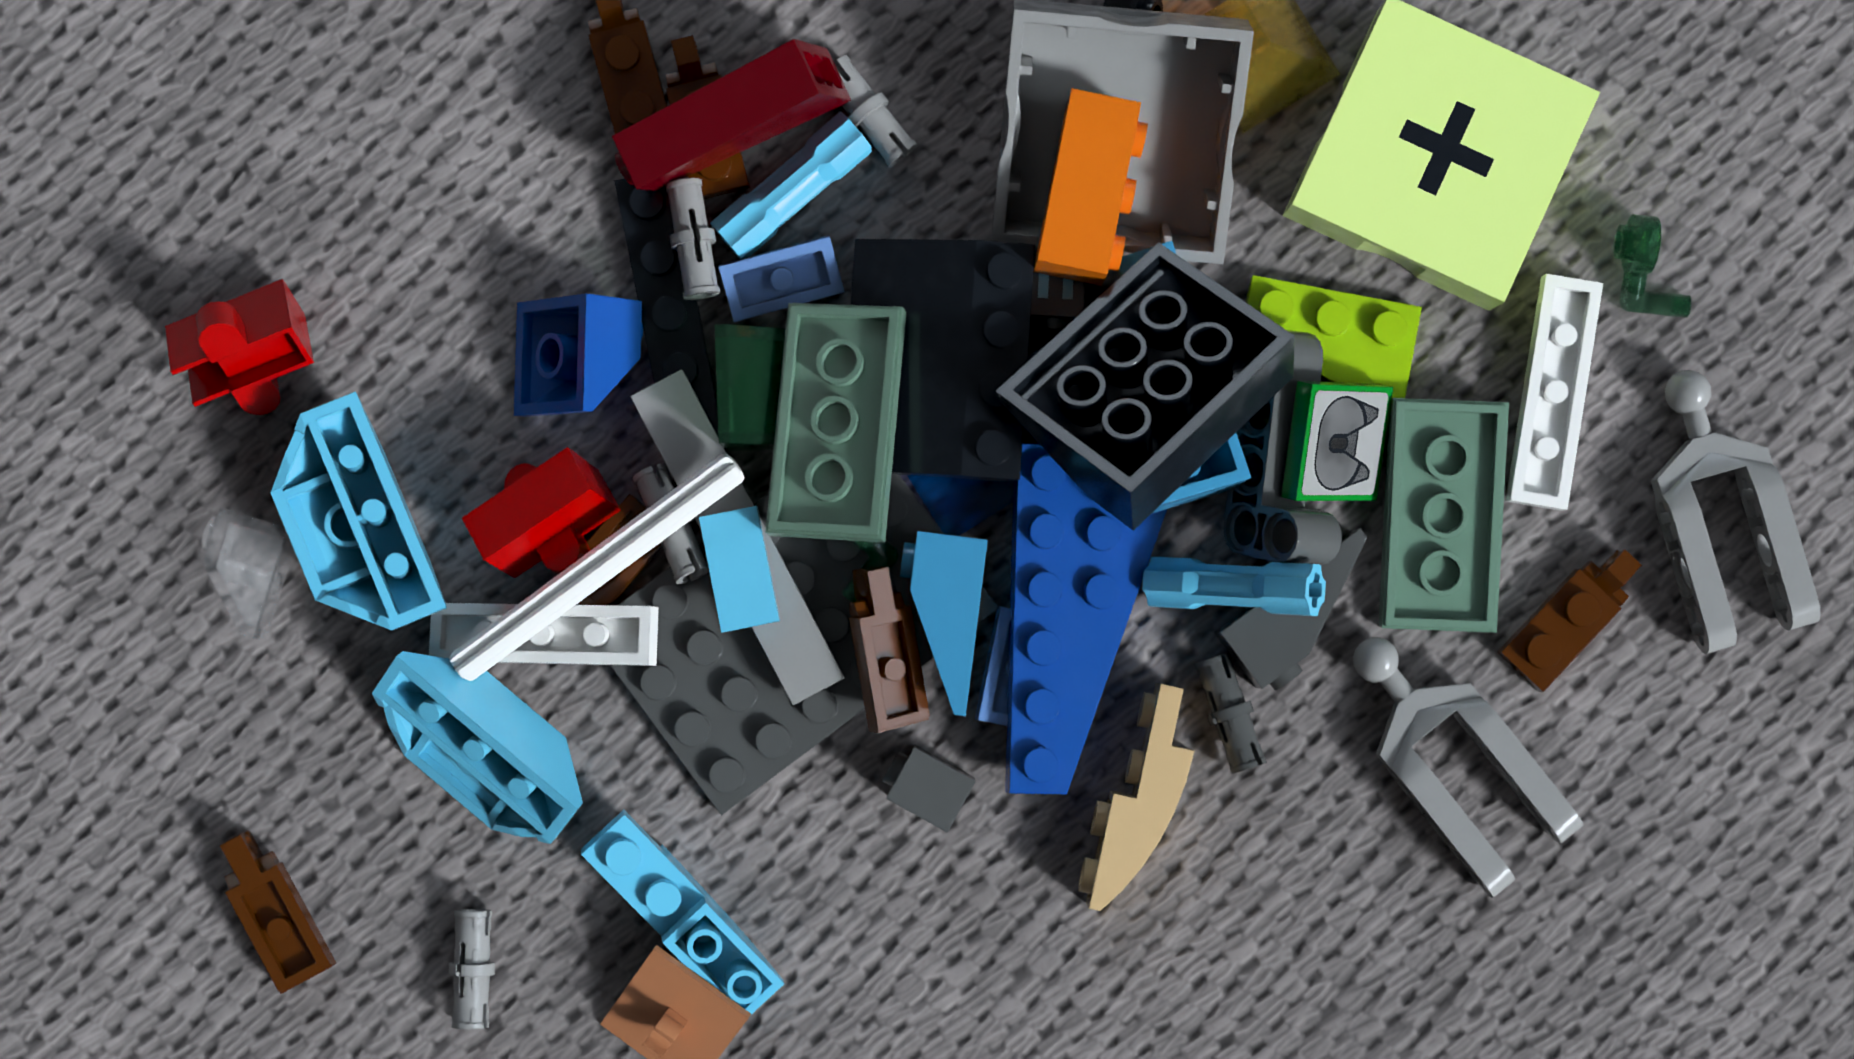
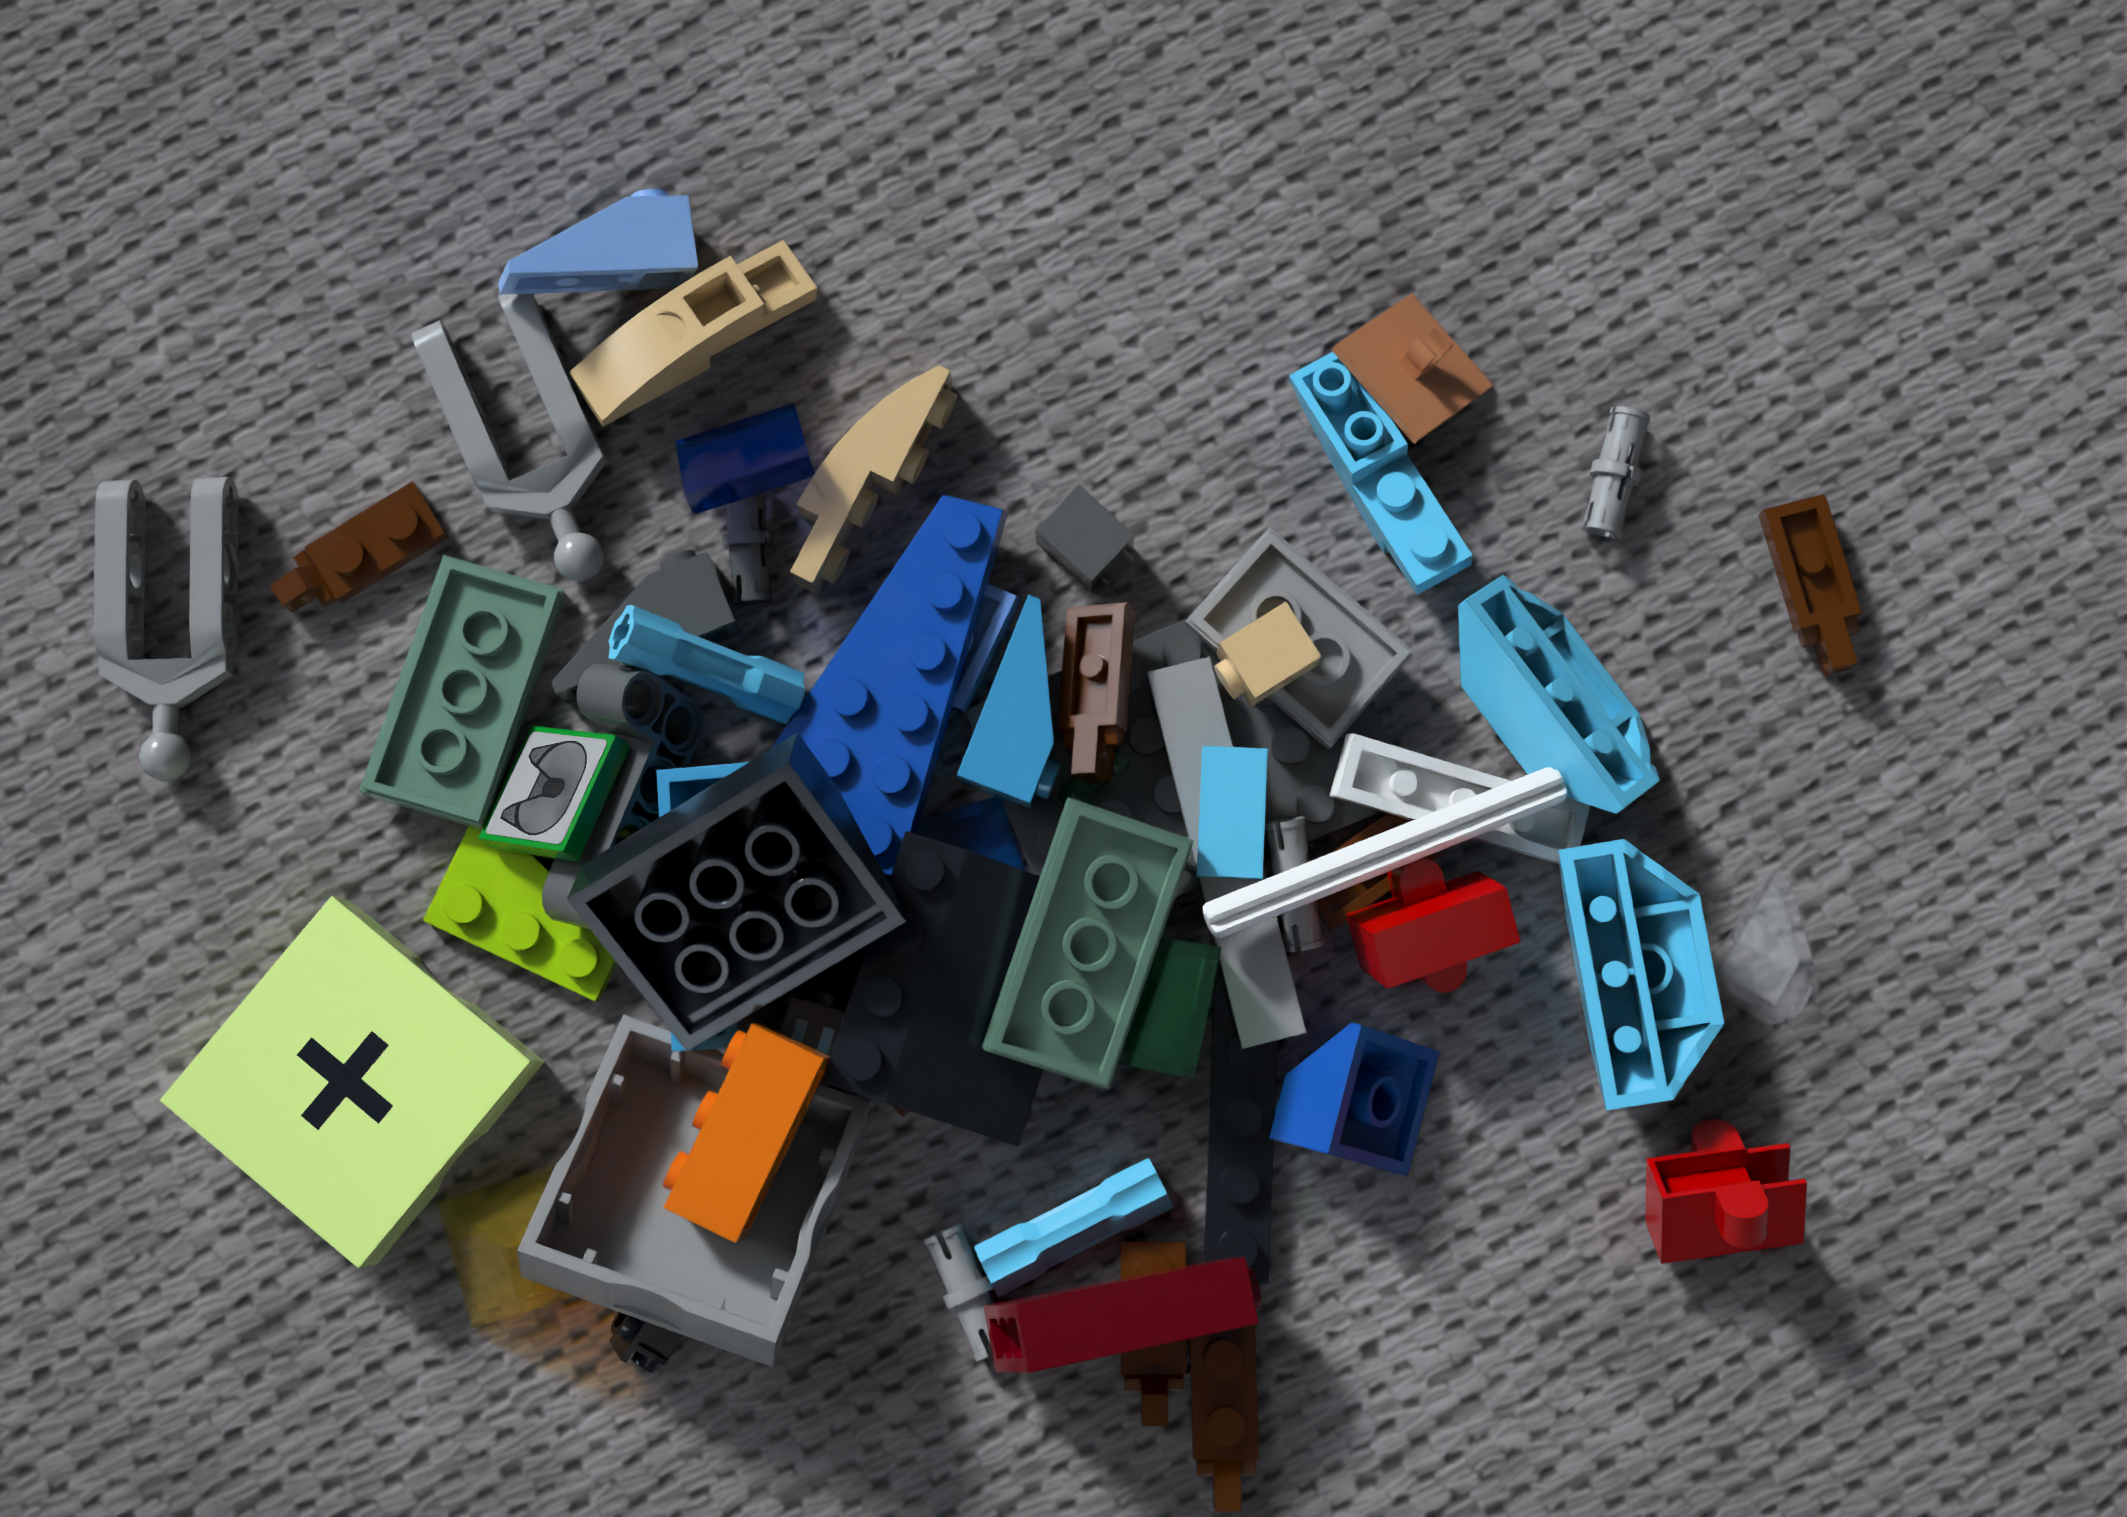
camera: 165 degrees left, 5 degrees down
(692, 238) = (1196, 1192): light grey pin -> none
(718, 743) = (1354, 646): none -> light grey tile
(742, 713) = (1265, 656): none -> tan brick
(781, 277) = (1109, 1126): medium blue plate -> none
(1252, 782) = (743, 459): none -> clear blue tile
(1334, 891) = (687, 327): none -> tan slope
(1409, 953) = (627, 246): none -> light blue slope
(1554, 392) = (307, 793): white plate -> none
(1639, 249) = (170, 921): clear green plate -> none

